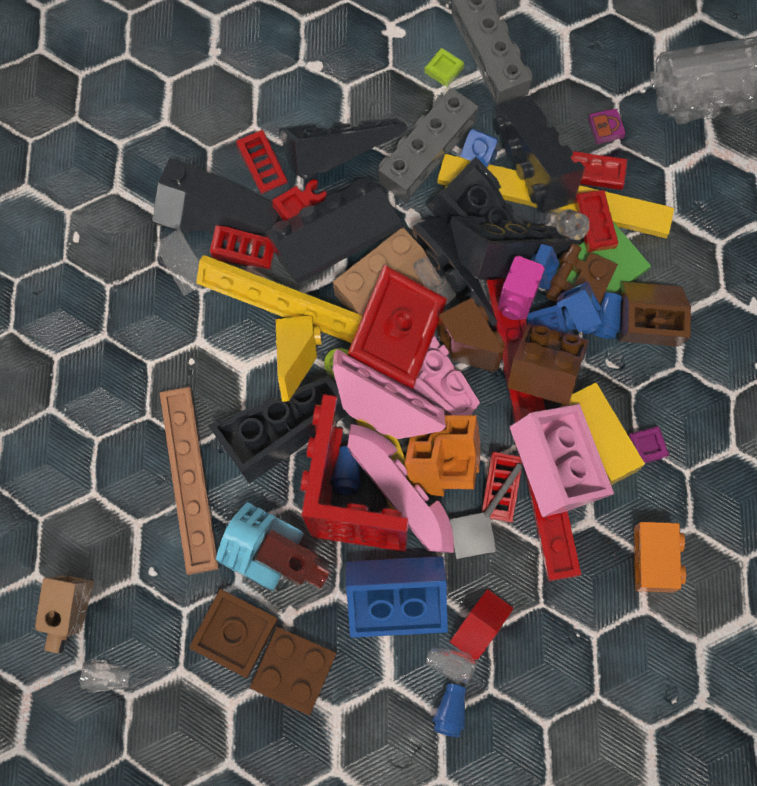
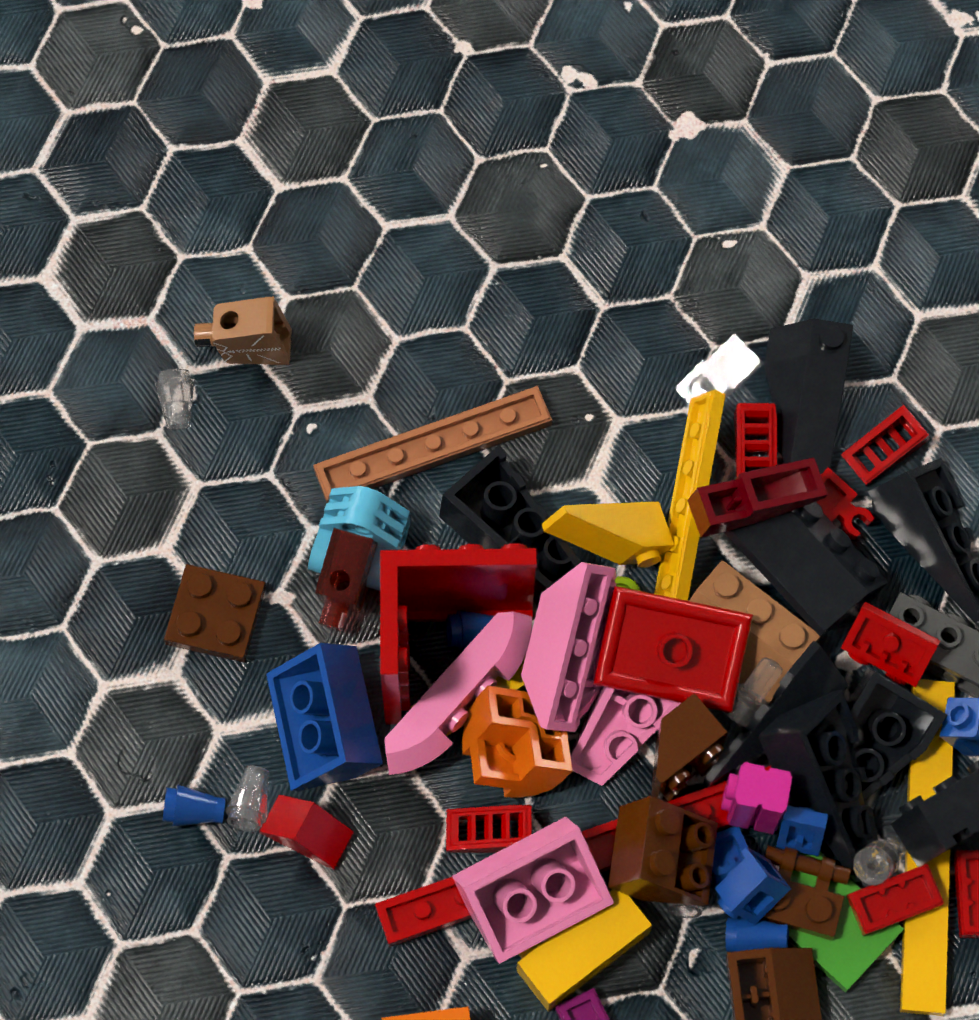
camera: 75 degrees right, 5 degrees down
(233, 633) = (248, 533): reddish brown plate -> none
(295, 244) = (756, 496): none -> dark red slope
(418, 183) = (890, 645): none -> red bracket
(474, 532) = (423, 803): piece -> none

